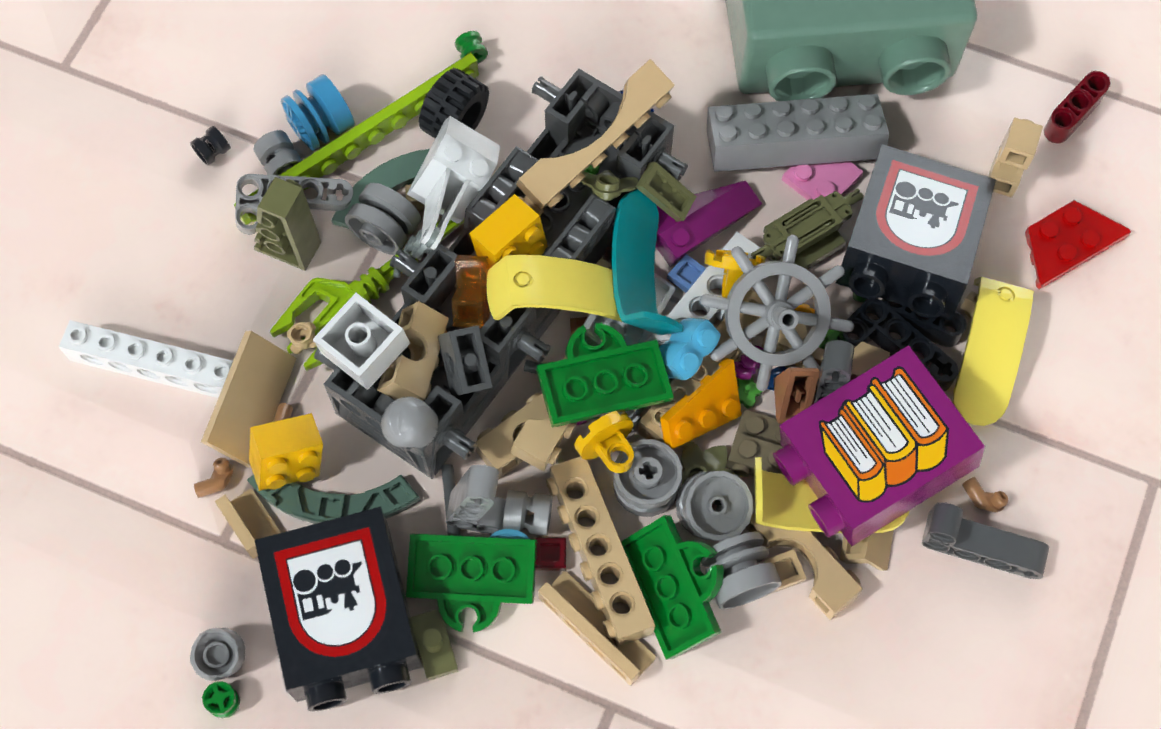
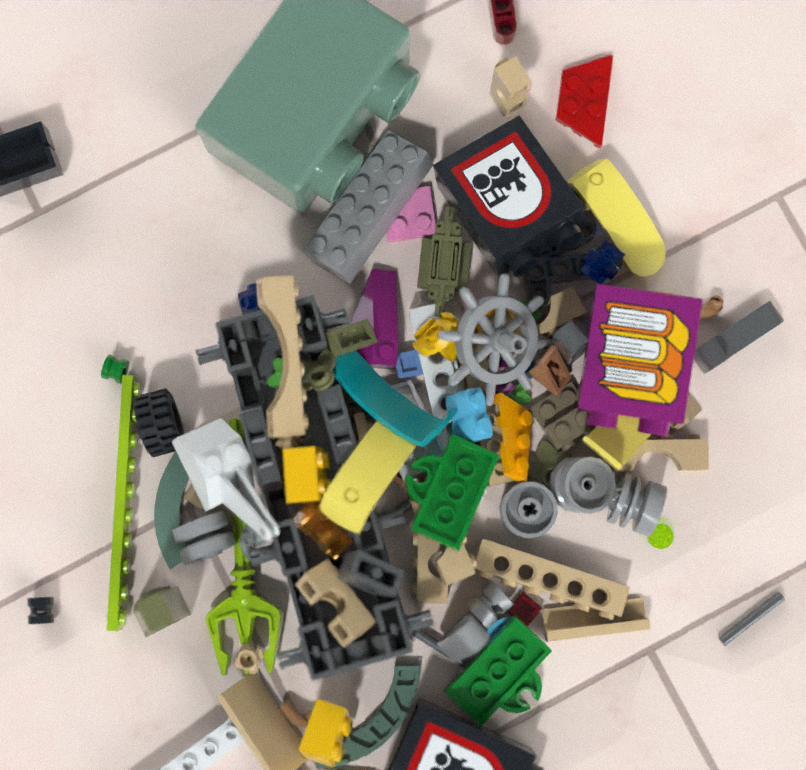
camera: 50 degrees left, 15 degrees up
(249, 204) = (138, 586): light grey beam -> none
(276, 152) = (92, 570): light grey wheel -> none
(314, 114) = (81, 518): dark azure wheel -> none
(361, 341) = (308, 637): white brick -> none
(409, 423) = (388, 647): light grey hair -> none
(434, 644) = (524, 730): olive tile -> none
(607, 436) = (490, 520): yellow tile -> none
(675, 585) = (611, 552): green plate -> none
(732, 626) = (661, 537): none -> clear neon green tile
(788, 568) = (654, 471): tan plate -> none
(937, 352) = (599, 266): none -> clear blue brick

